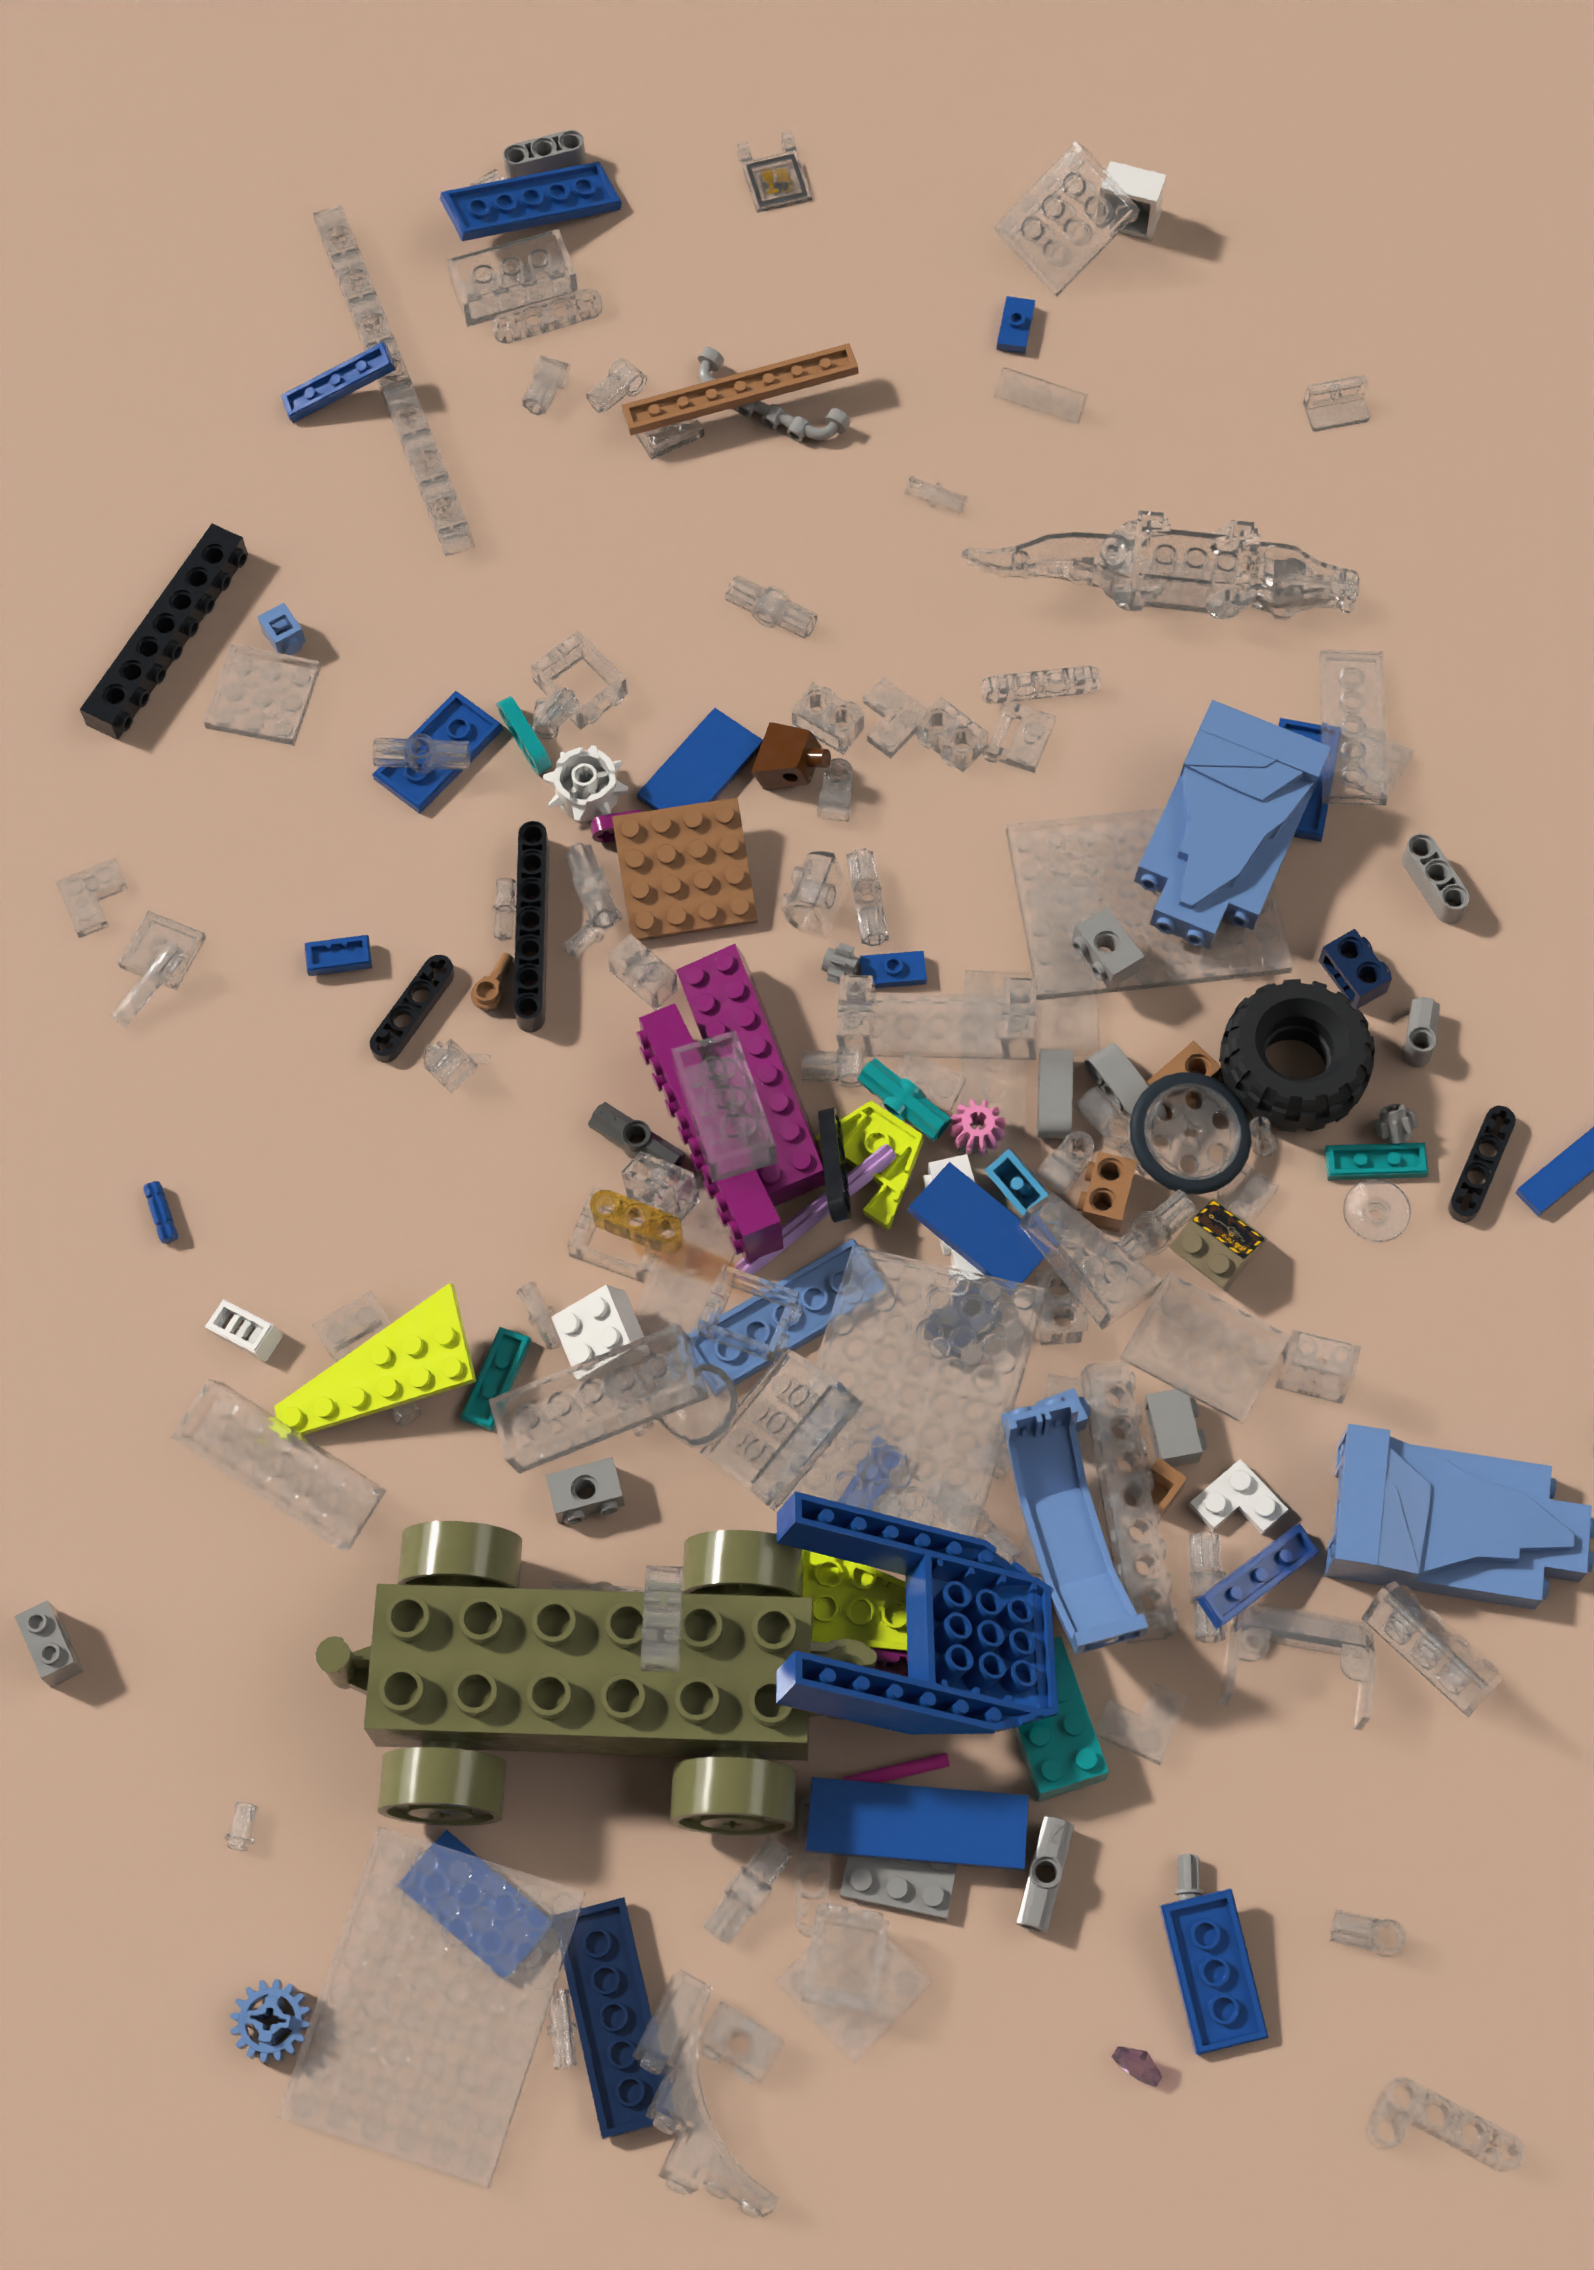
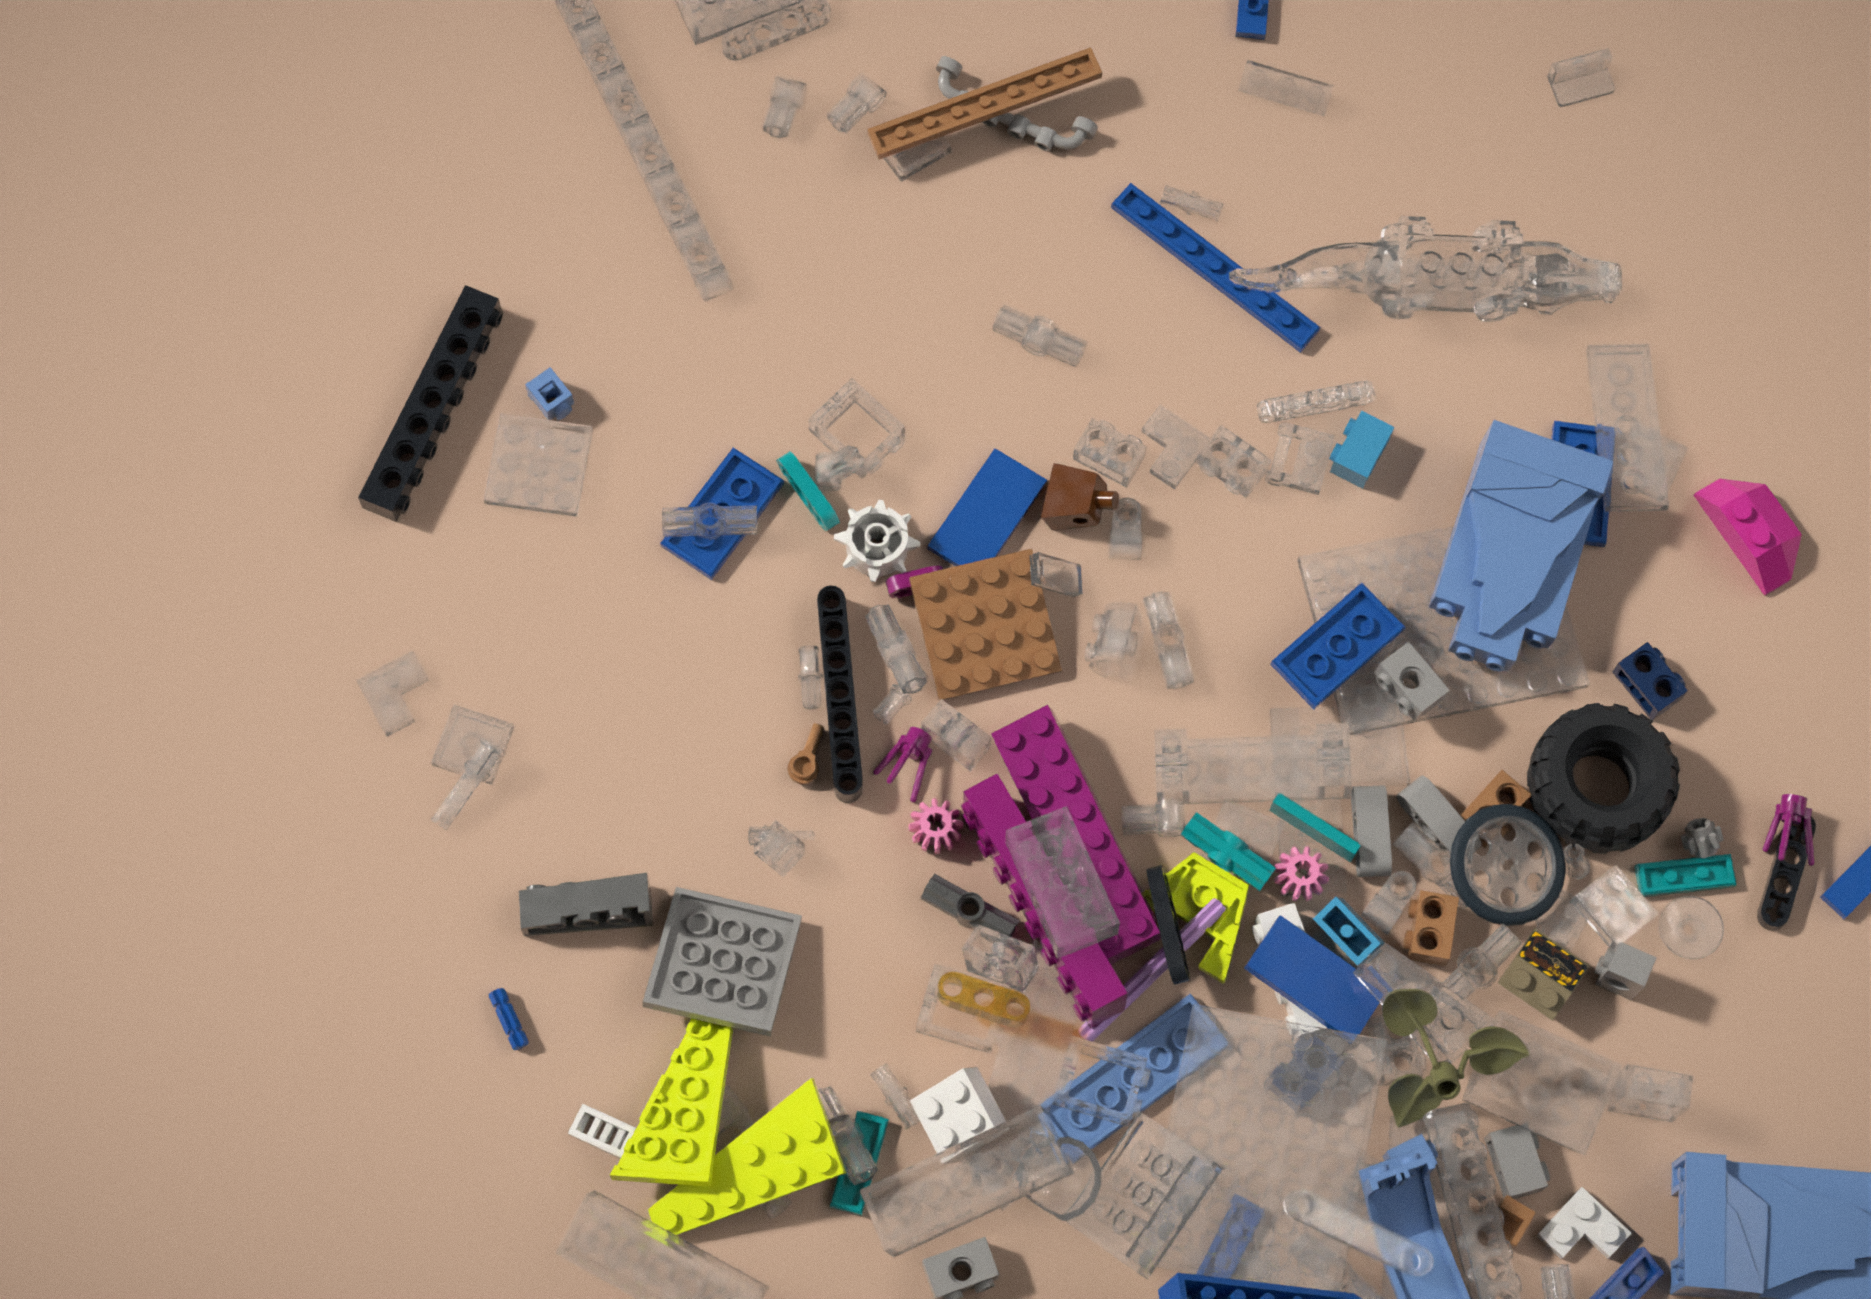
camera: 10 degrees left, 5 degrees up
(253, 1107) = (586, 905): none -> dark grey wedge
(323, 1307) = (683, 1114): none -> neon yellow wing
(338, 382) = (573, 119): blue tile -> none
(338, 955) = (650, 738): blue plate -> none
(380, 1170) = (722, 961): none -> light grey plate
(408, 1006) = (734, 789): black beam -> none
(484, 1350) = (848, 1138): none -> clear piece
(599, 980) = (912, 746): none -> magenta plant
(611, 1046) = (923, 821): none -> bright pink gear
(760, 826) = (1056, 574): none -> clear tile
(840, 962) = (1149, 712): light grey gear -> none
(895, 969) = (1200, 712): blue plate -> none
(947, 552) = (1213, 266): none -> blue tile
(995, 1083) = (1314, 827): none -> teal tile
(996, 1478) = (1358, 1233): none -> clear piece
(1036, 910) = (1337, 646): none -> blue tile
(1067, 1351) = (1412, 1096): none -> olive plant
(1081, 731) = (1361, 449): none -> dark azure brick
(1298, 1185) = (1614, 907): none -> clear plate
(1301, 1244) = (1624, 970): none -> light grey brick
(1422, 1031) = (1718, 738): light grey piece -> none
(1435, 892) = (1720, 566): light grey beam -> none
(1475, 833) = (1754, 529): none -> dark pink wedge
(1489, 1104) = (1790, 812): none -> magenta plant

